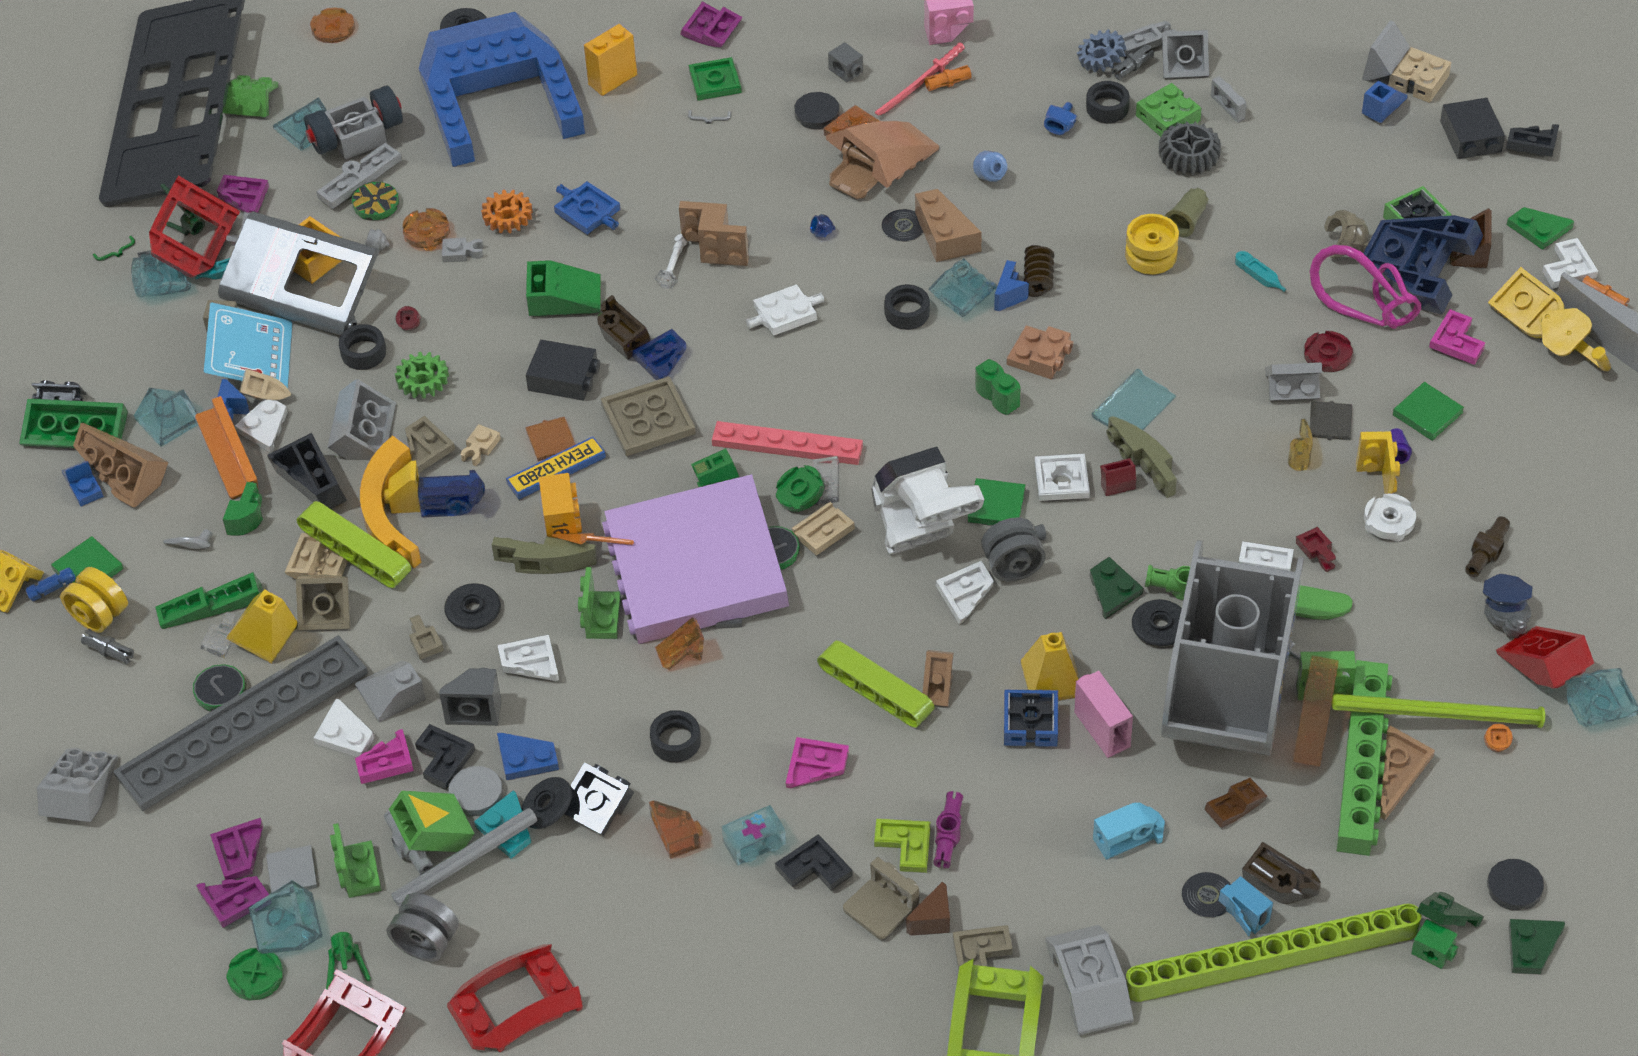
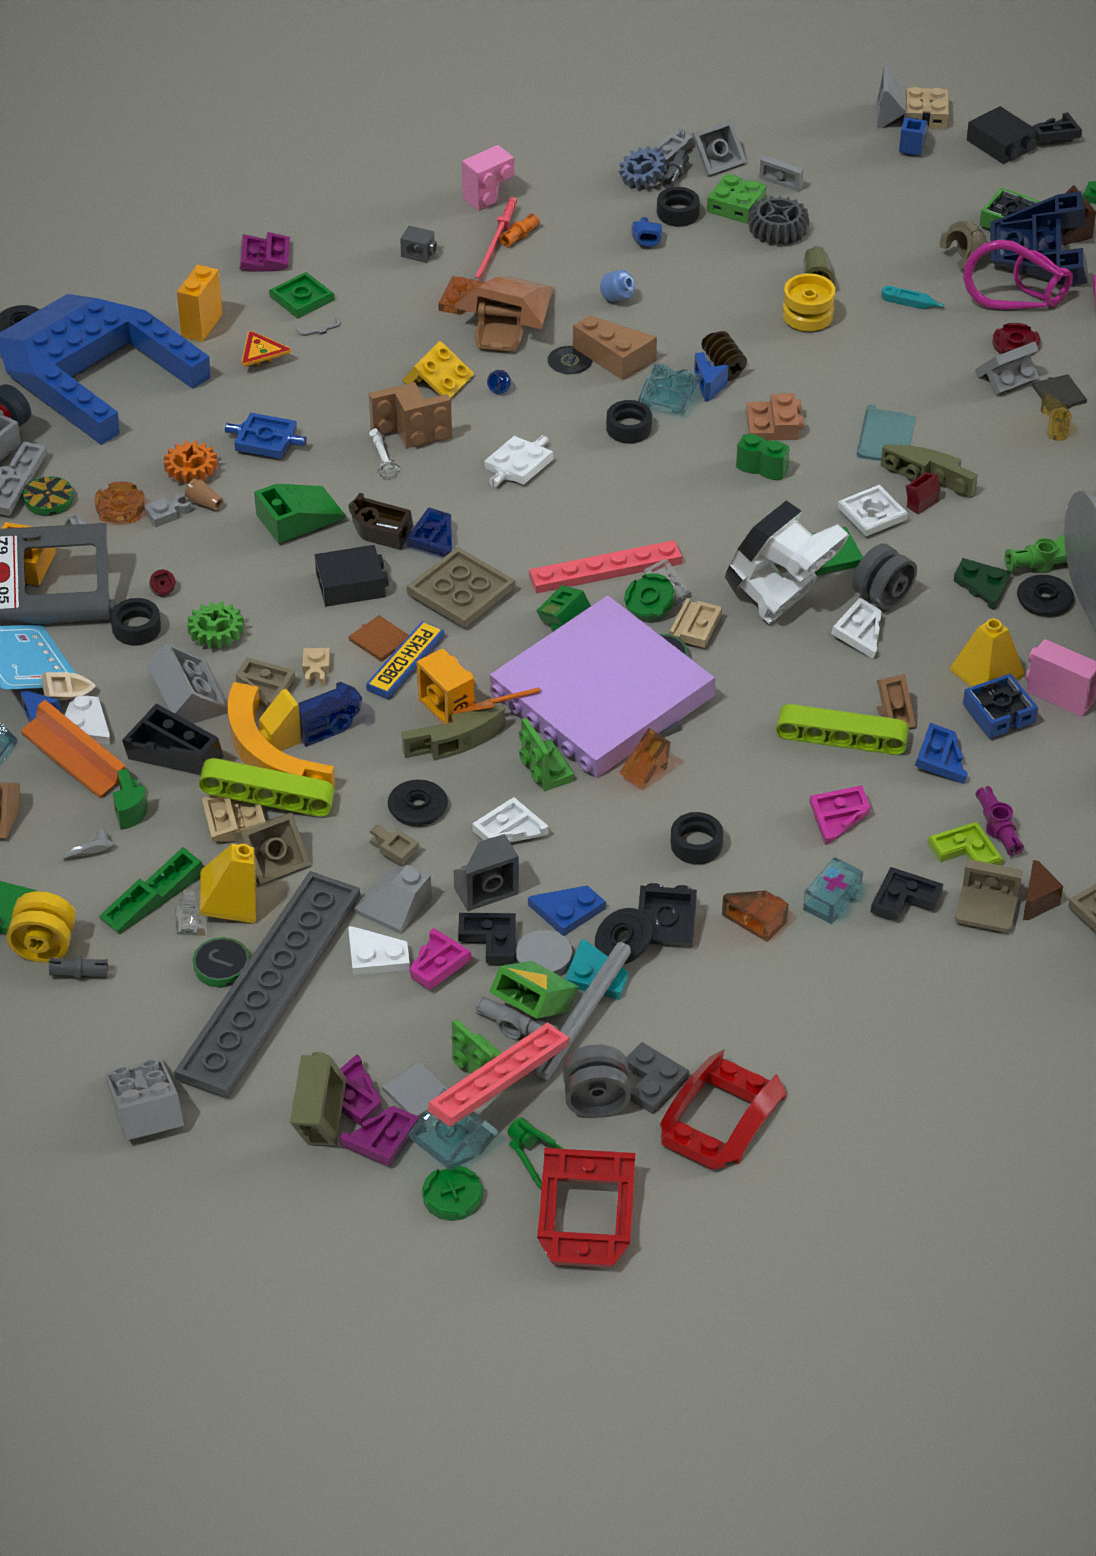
camera: 30 degrees left, 5 degrees down
(181, 836) = (318, 1099): none -> olive window
(341, 887) = (498, 1074): none -> coral plate
(489, 948) = (658, 1074): none -> dark grey plate
(495, 244) = (202, 494): none -> medium nougat cone
(638, 121) = (260, 348): none -> piece
(776, 198) = (440, 370): none -> yellow bracket
(816, 110) = (418, 291): black tile -> none
(946, 742) = (941, 754): none -> blue wing

